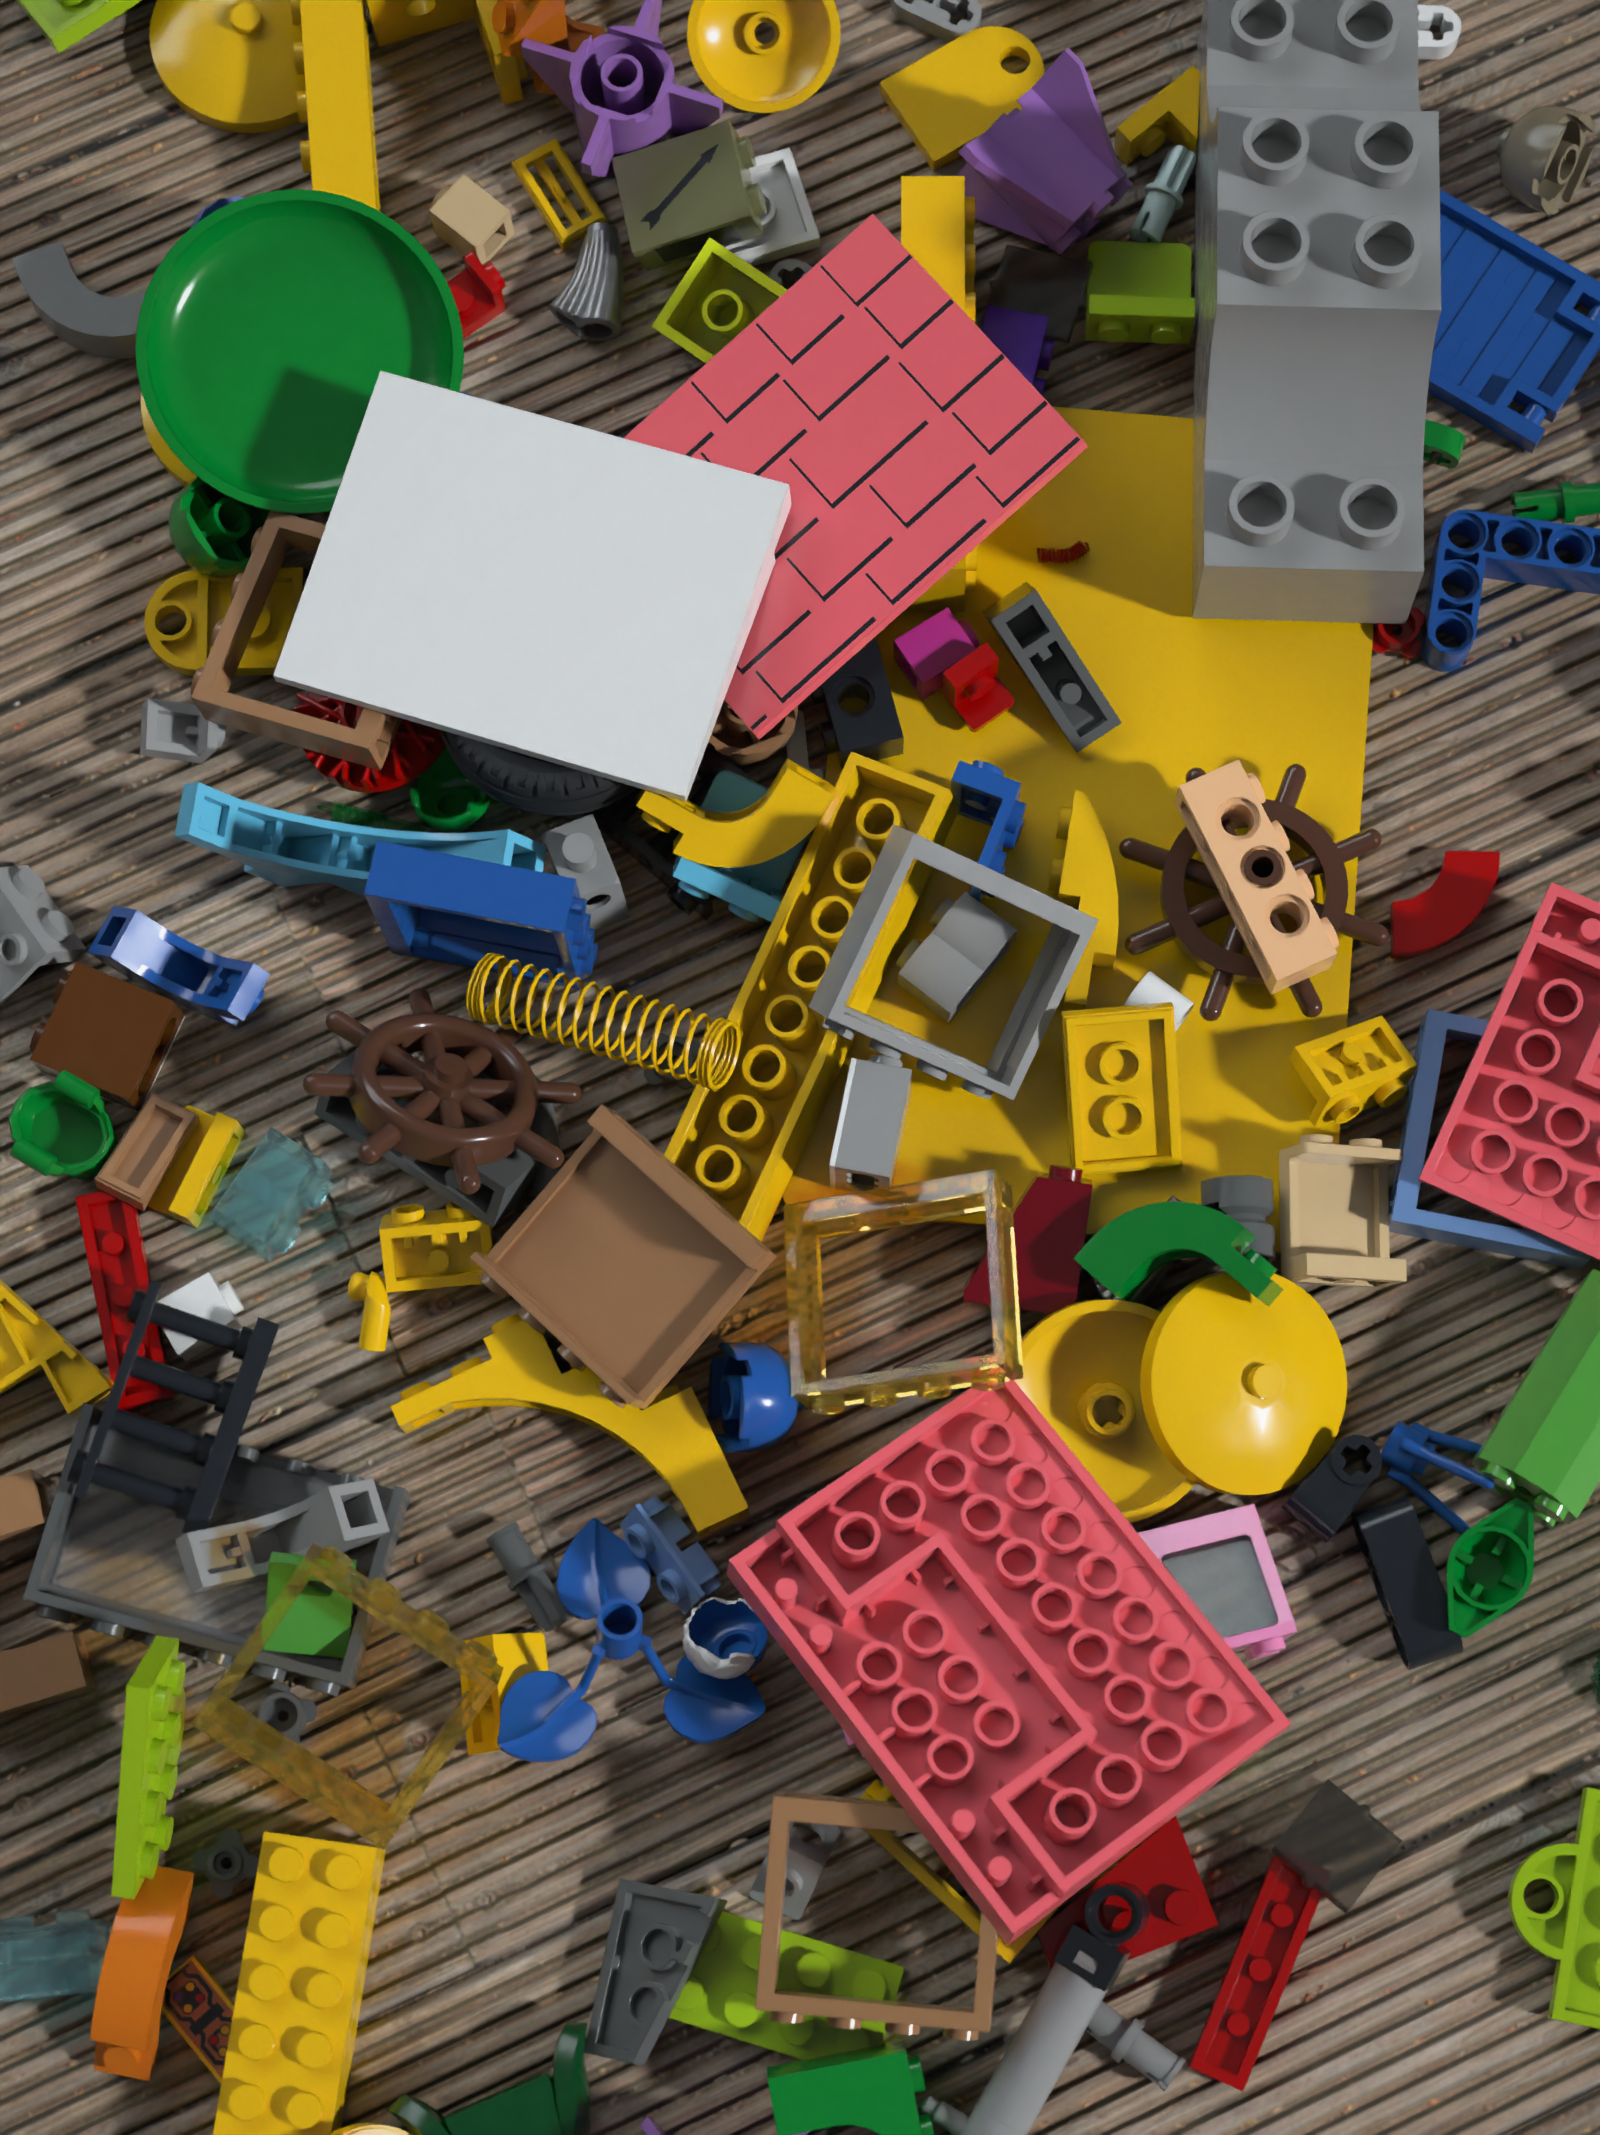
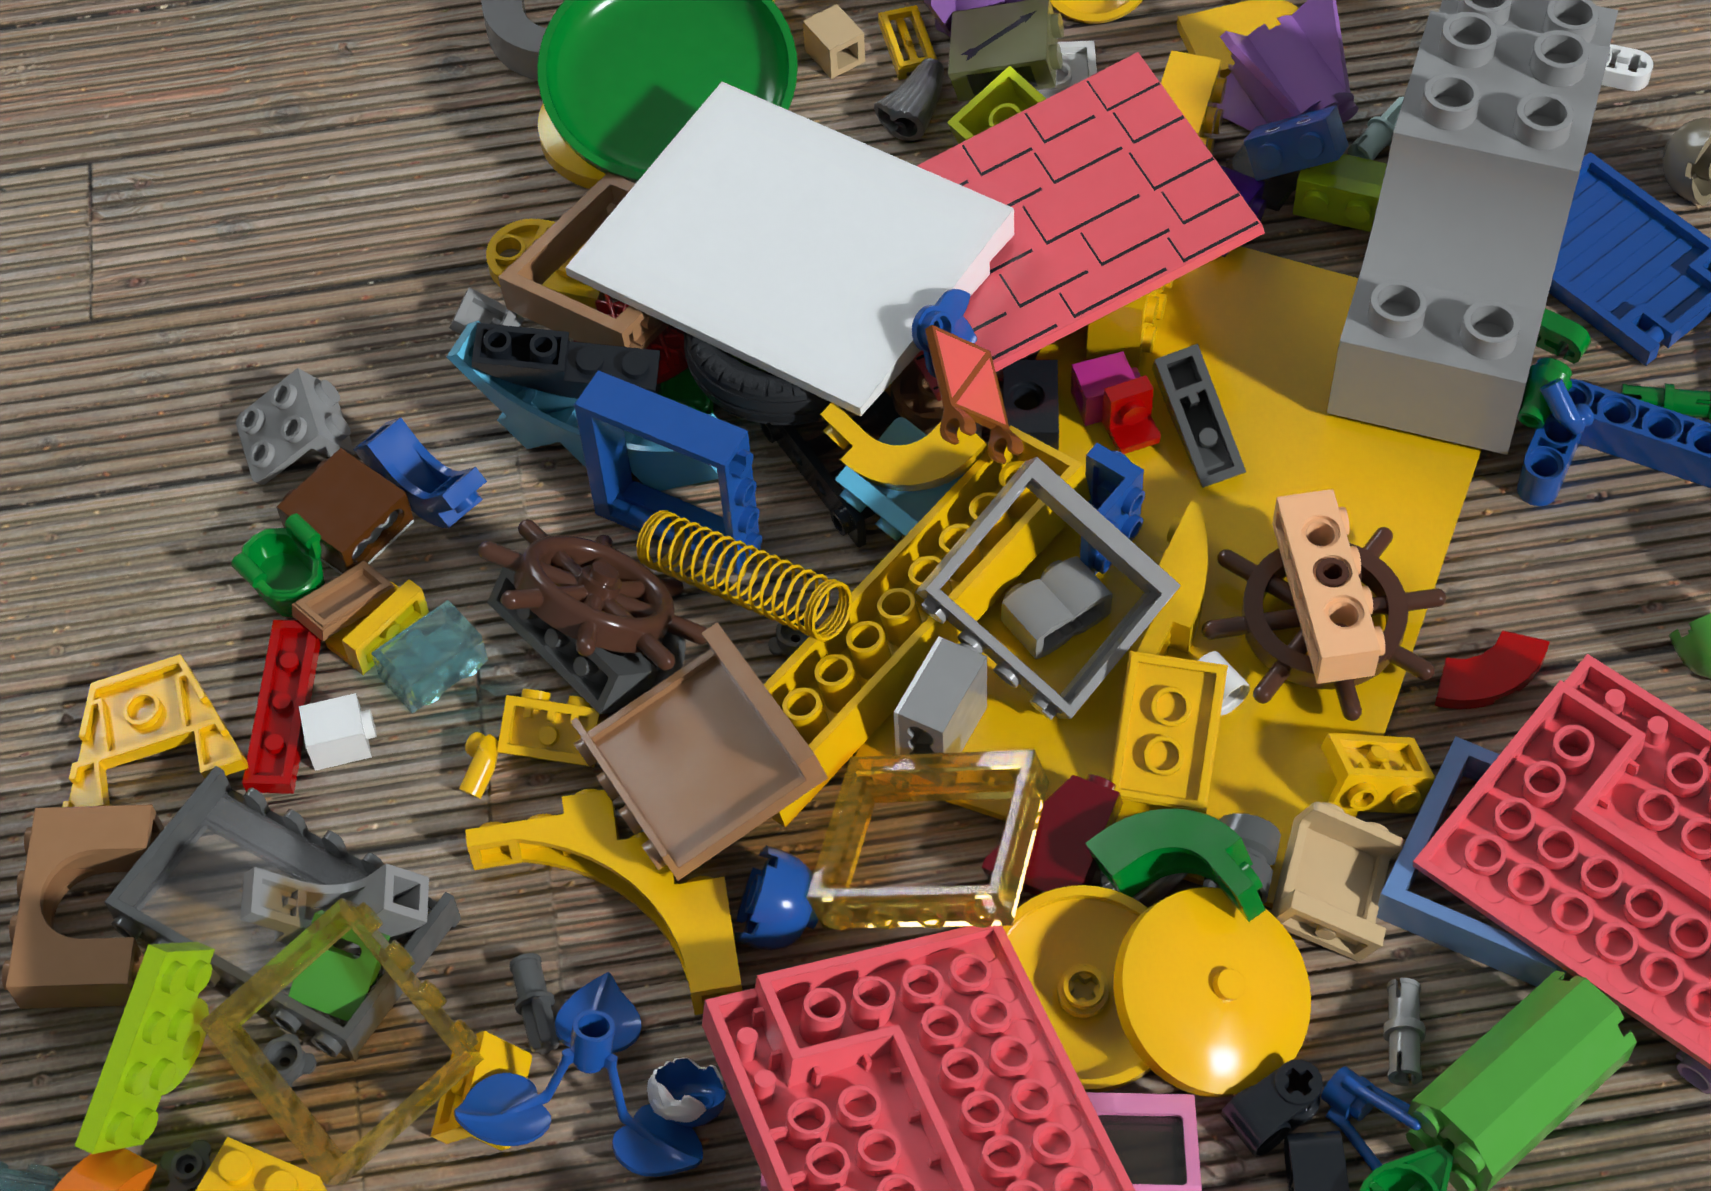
camera: 15 degrees right, 20 degrees down
(211, 1450) = (336, 791): black fence -> none
(213, 529) = (559, 181): green cylinder -> none
(313, 802) = (554, 364): none -> black slope
(477, 294) = (819, 90): red bracket -> none
(580, 853) = (773, 471): light grey torso -> none
(681, 1576) = (655, 995): medium blue hinge -> none
(747, 667) = (946, 315): none -> blue plate
(804, 743) = (970, 392): none -> flag
(1049, 555) = (1234, 348): red leg -> none
(1076, 264) = (1296, 143): none -> blue brick
(1169, 114) = (1383, 80): yellow slope -> none
(1404, 643) = (1502, 473): red plate -> none
(1441, 539) = (1534, 407): none -> green cone
(1446, 1362) = (1404, 1031): none -> light grey pin
(1462, 567) = (1568, 415): none -> blue arm

